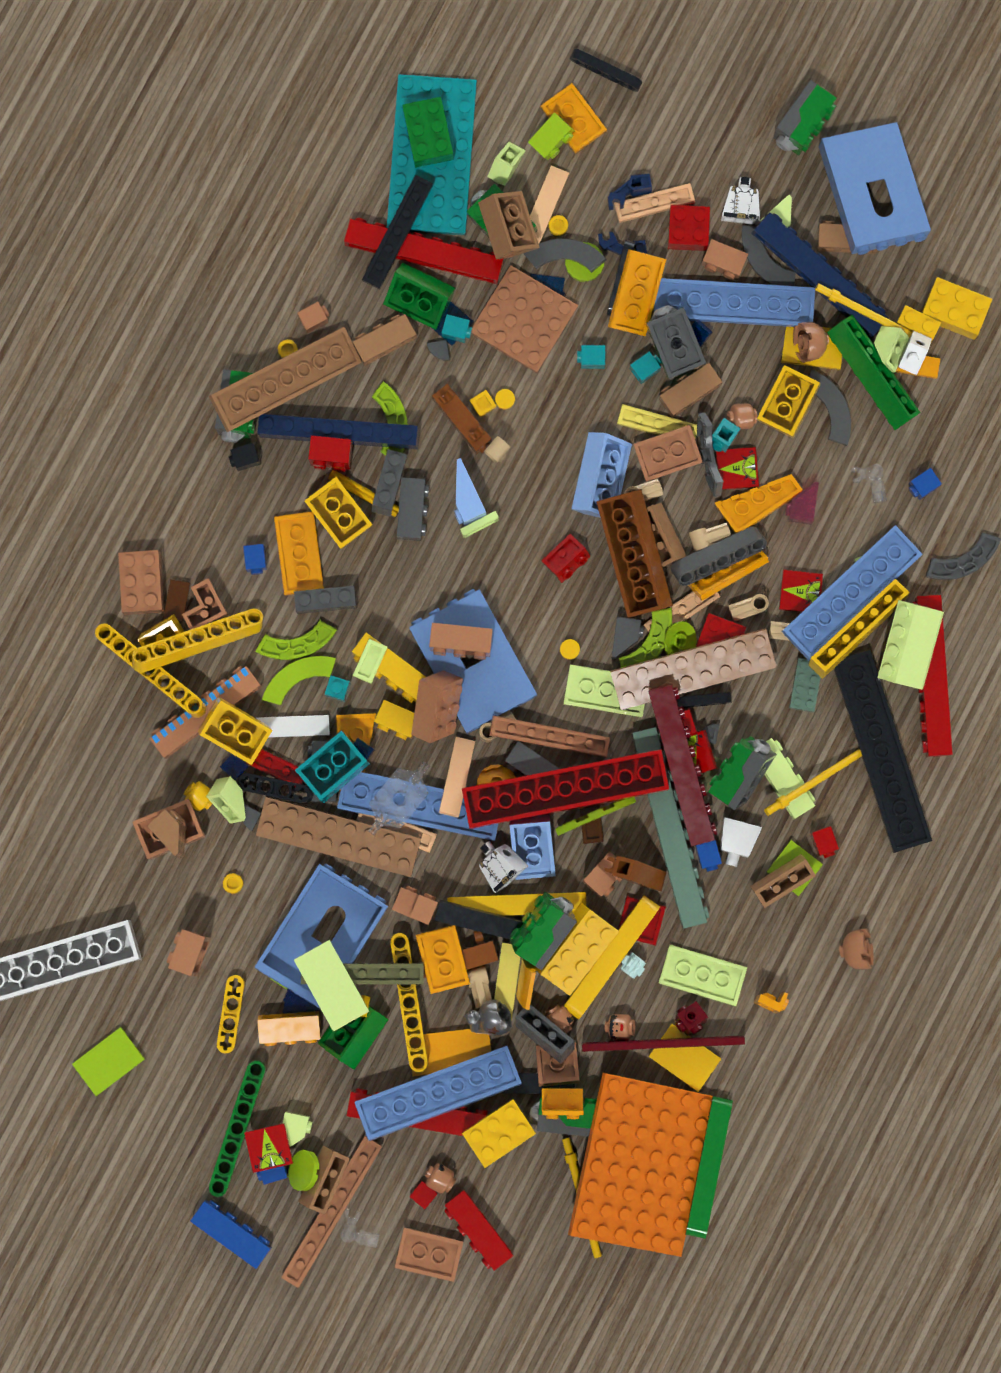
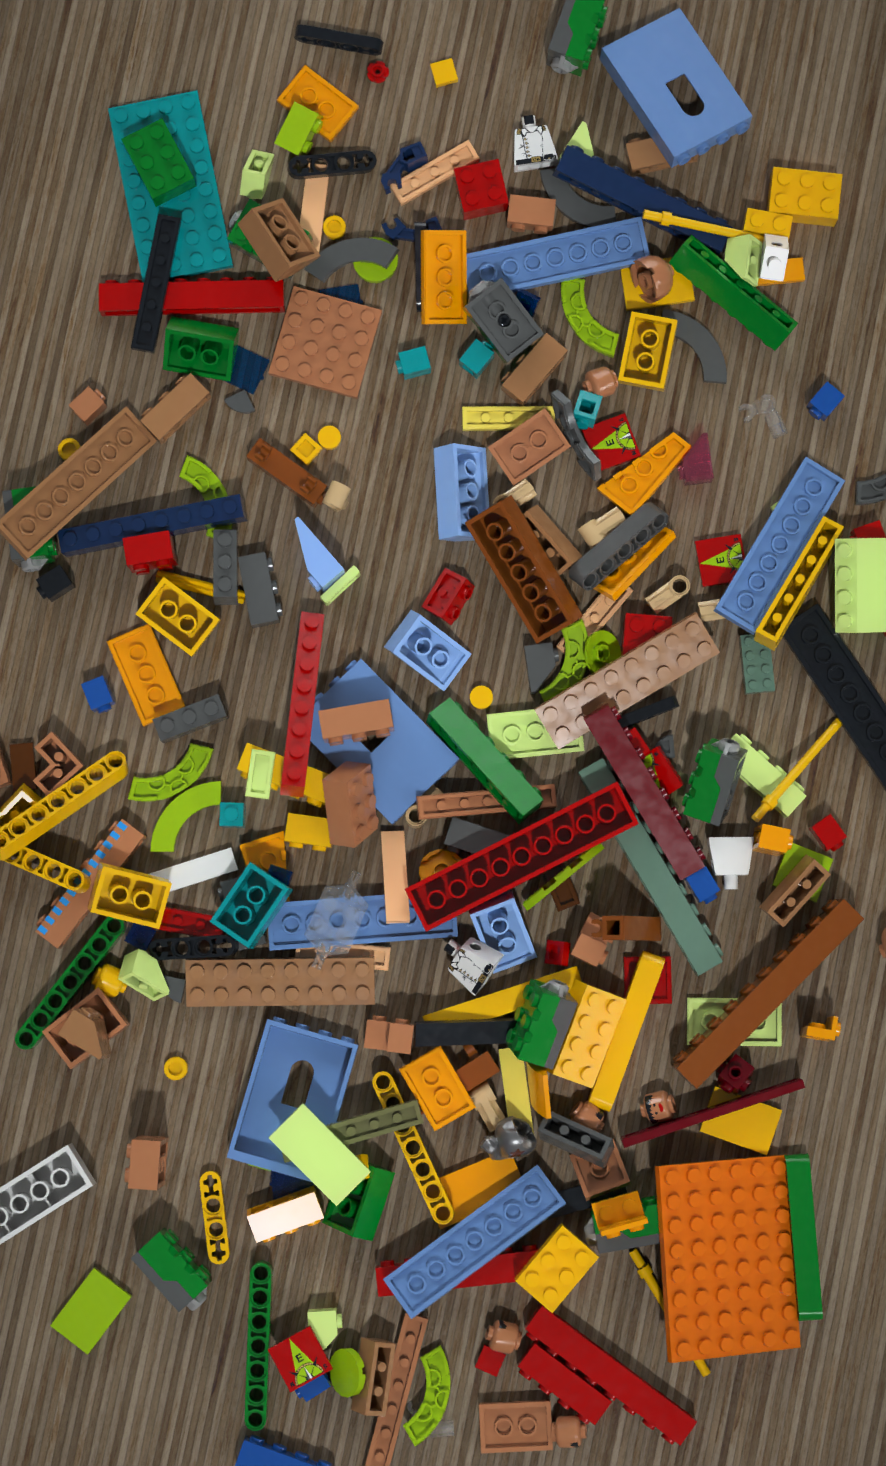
camera: 15 degrees left, 0 degrees up
(156, 790) = (60, 986): none -> green beam
(185, 1047) = (173, 1270): none -> green piece
(369, 1213) = (435, 1399): none -> lime tile
(420, 613) = (302, 704): none -> red brick
(456, 329) = (253, 373): teal brick -> none
(471, 1270) = (568, 1431): none -> nougat head
(518, 1233) = (610, 1374): none -> red brick
(536, 598) = (427, 650): none -> light blue slope
(557, 701) = (484, 760): none -> green brick
(570, 173) = (331, 162): none -> black beam
(573, 877) = (557, 953): none -> red plate
(630, 110) = (373, 76): none -> red plate
(632, 965) = (653, 1033): light aqua gear -> none
(685, 121) = (444, 72): none -> yellow tile
(736, 958) = (766, 992): none -> dark orange brick
(742, 362) = (582, 322): none -> lime tile
(775, 833) = (772, 840): none -> light orange brick

